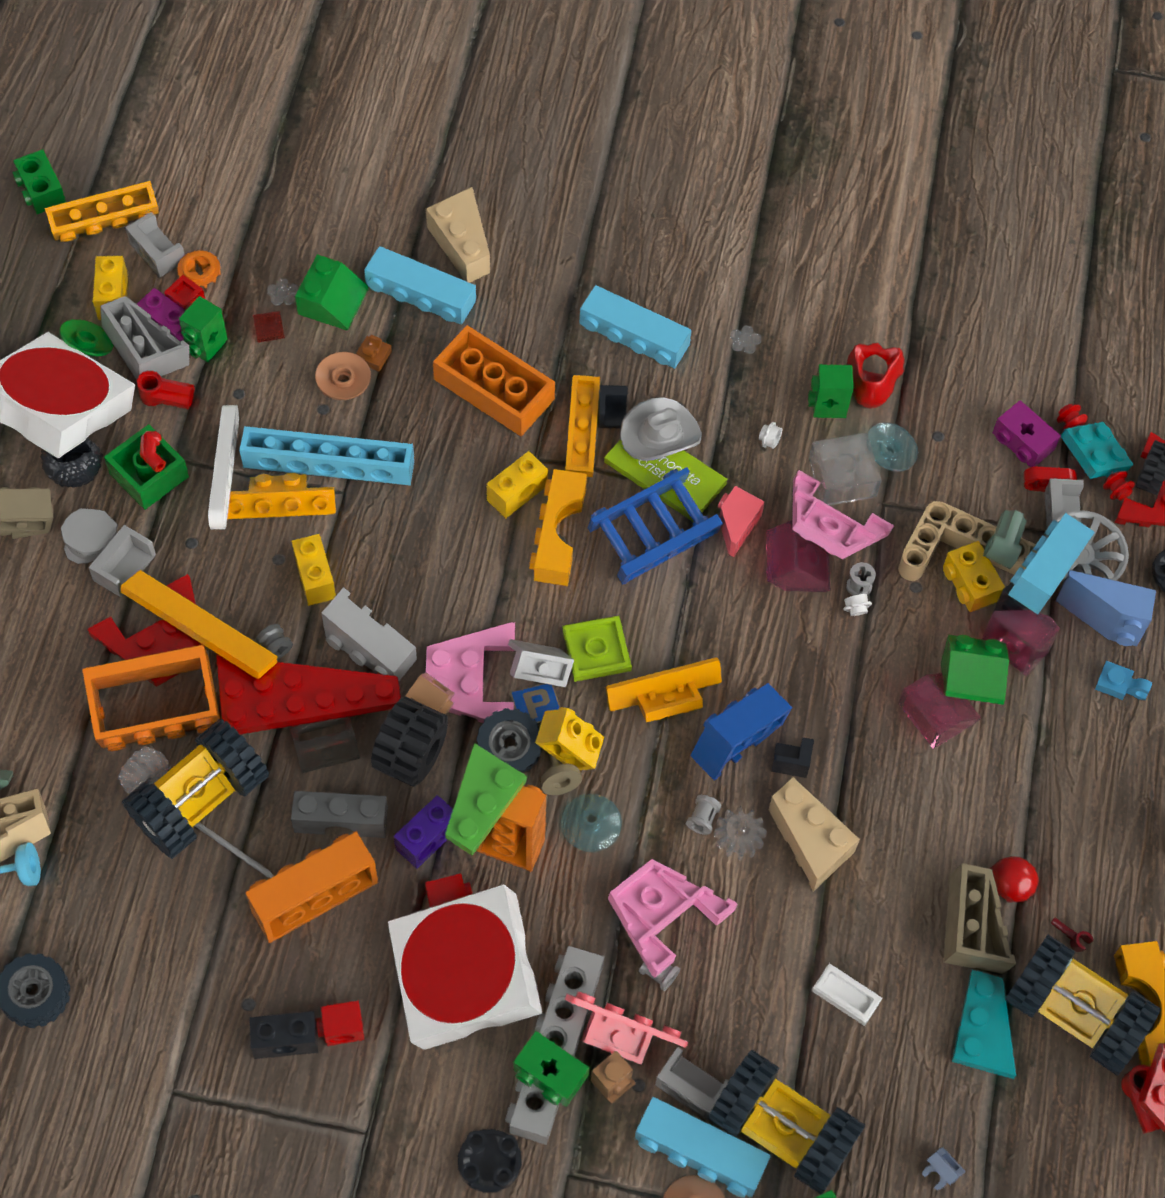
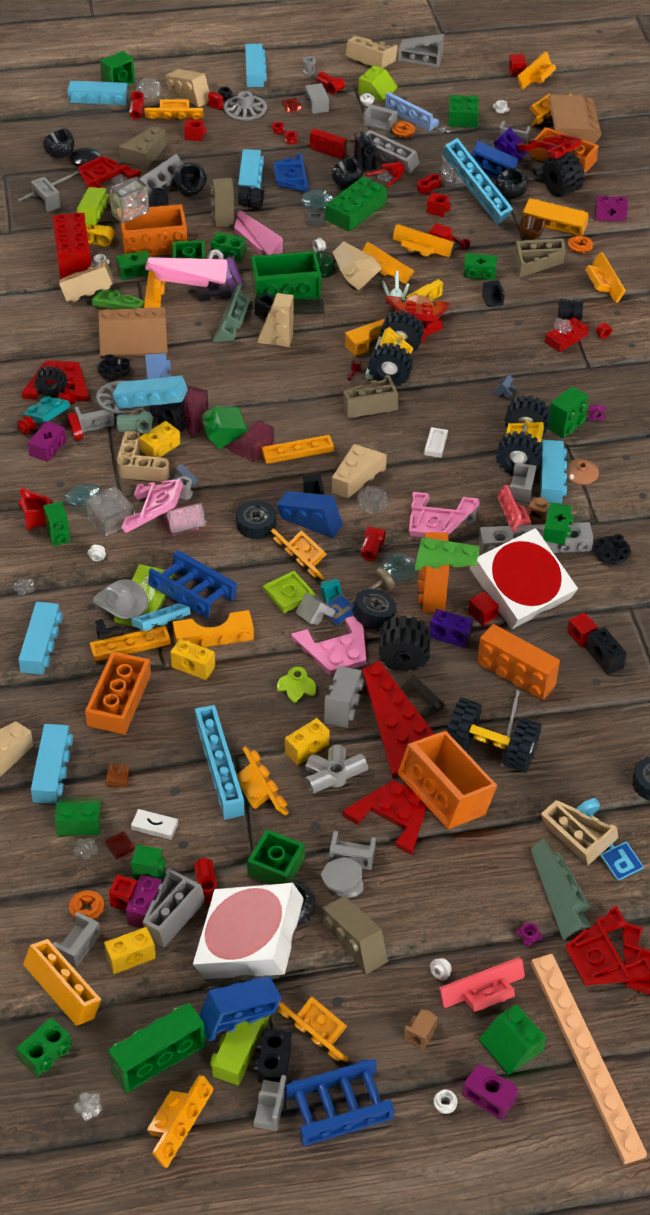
camera: 110 degrees left, 15 degrees down
(86, 337) = (182, 946): green dish -> none
(143, 766) = (497, 770): clear gear -> none
(148, 450) = (270, 846): red arm -> none
(199, 624) = (379, 785): light orange tile -> none
(223, 467) = (257, 809): white beam -> none
(263, 586) = (334, 770): none -> light grey piece
(274, 640) = (368, 745): dark grey wheel -> none
(279, 369) = (154, 824): none -> white tile
(318, 810) = (460, 662): dark grey arch -> none
(339, 367) = (149, 774): nougat dish -> none
(420, 598) = (296, 686): none -> lime plate
(431, 693) = (366, 649): medium nougat brick -> none
(569, 738) = (360, 576): yellow brick -> none
(572, 698) = (330, 590): none -> teal tile
(607, 465) = (161, 617): none -> medium azure plate
(655, 802) = (373, 540): none -> red piece
(703, 814) = (369, 517): light grey bush -> none
(739, 516) = (162, 549): coral slope -> none
(755, 670) = (255, 519): none -> black wheel
(857, 604) = (200, 487): white plate -> none
(889, 593) = (185, 472): none -> sand blue tile
(896, 770) = (297, 449): none -> light orange plate
(984, 1027) = (423, 390): teal wing -> none
(1015, 878) = (334, 394): red hair -> none
(1118, 681) = (196, 378): dark azure plate -> none

